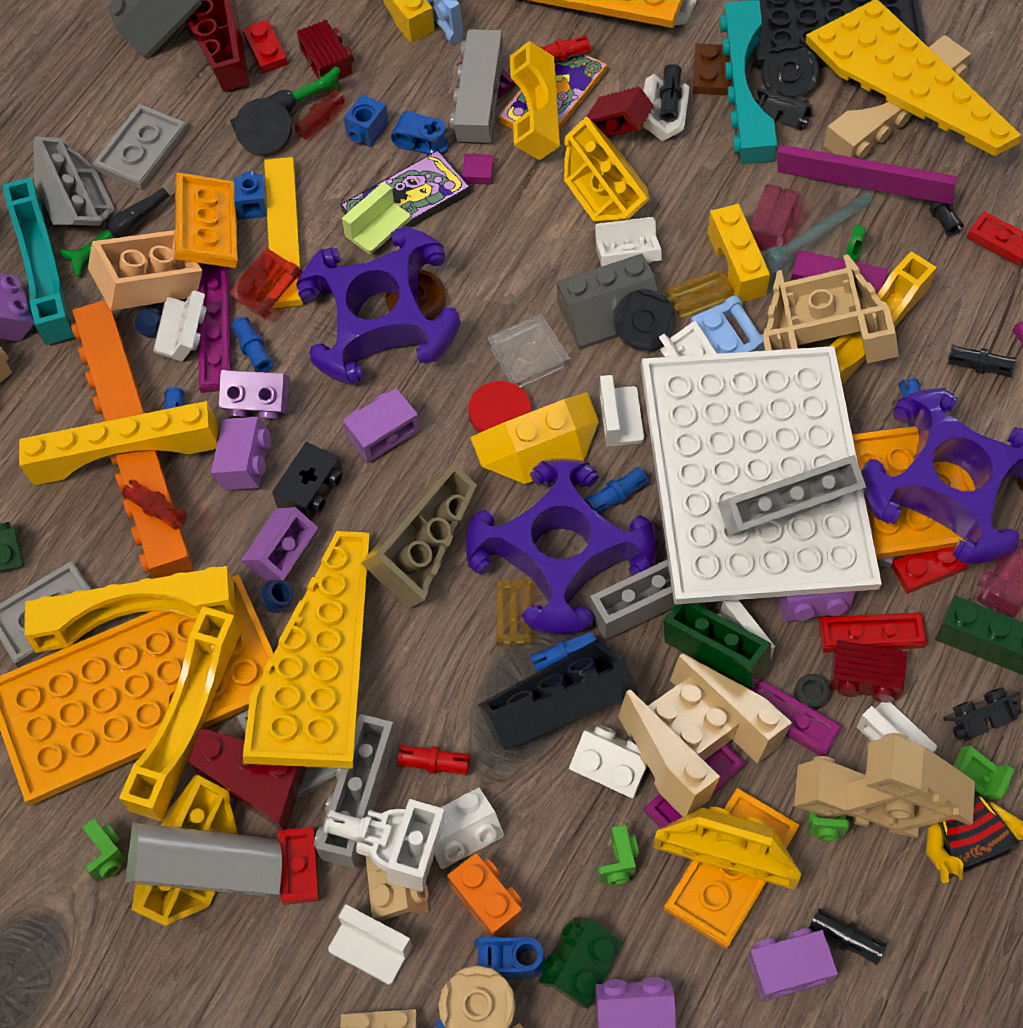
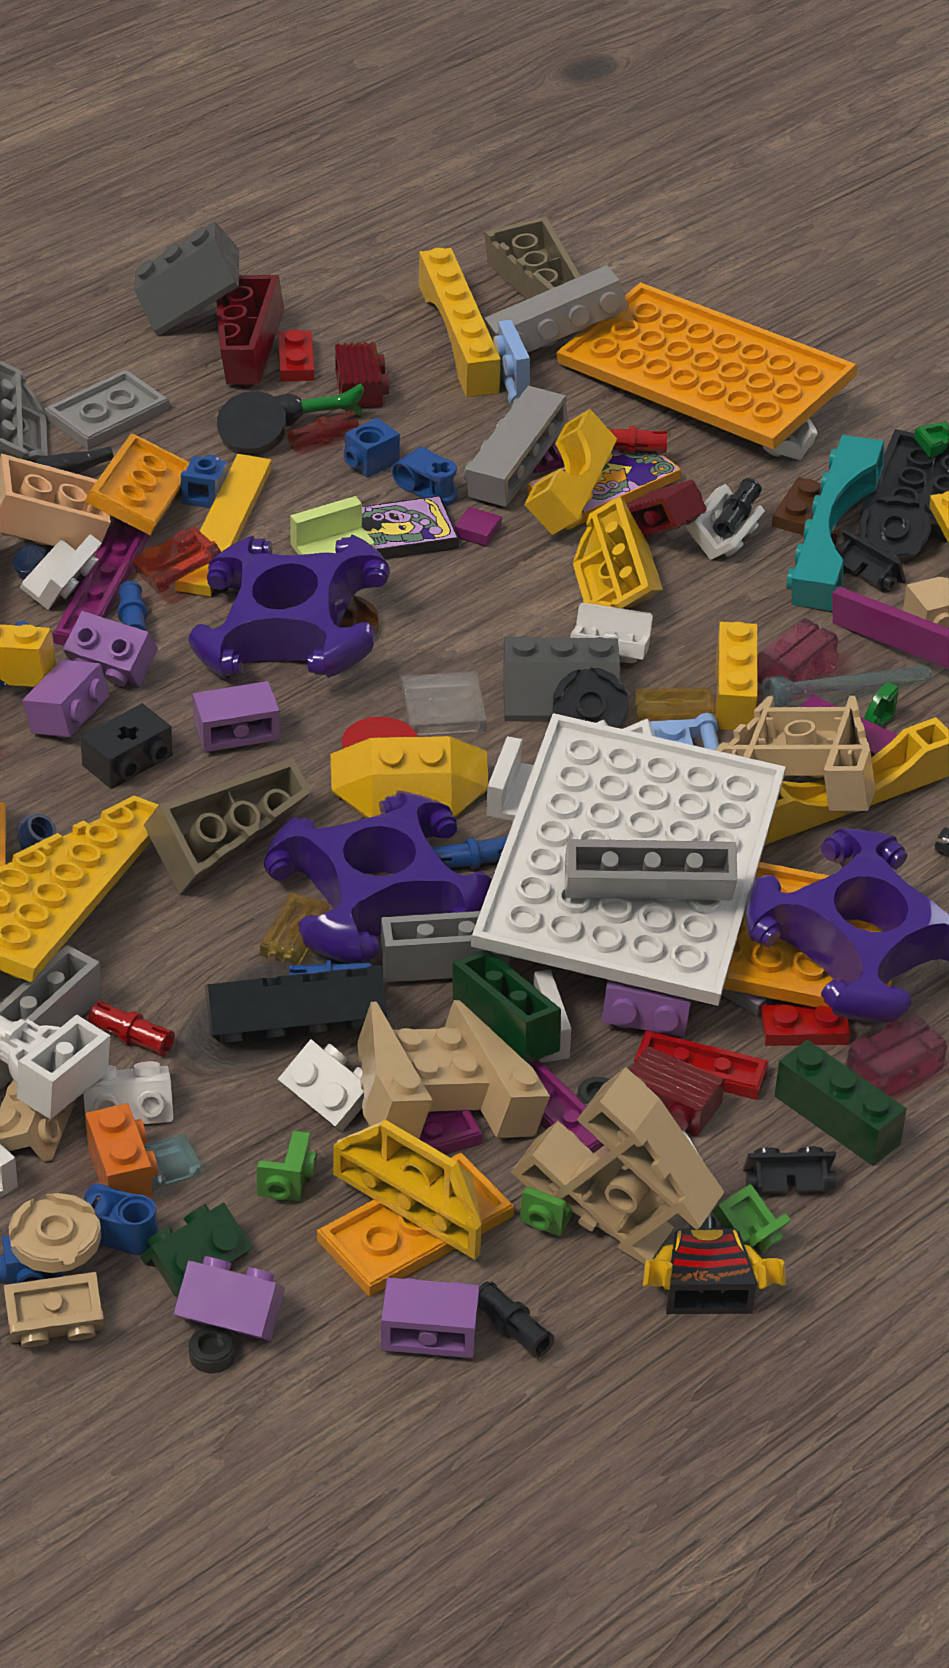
camera: 15 degrees right, 20 degrees down
(279, 544) = (66, 785): medium lavender brick -> none
(522, 876) = (174, 1159): none -> clear light blue tile

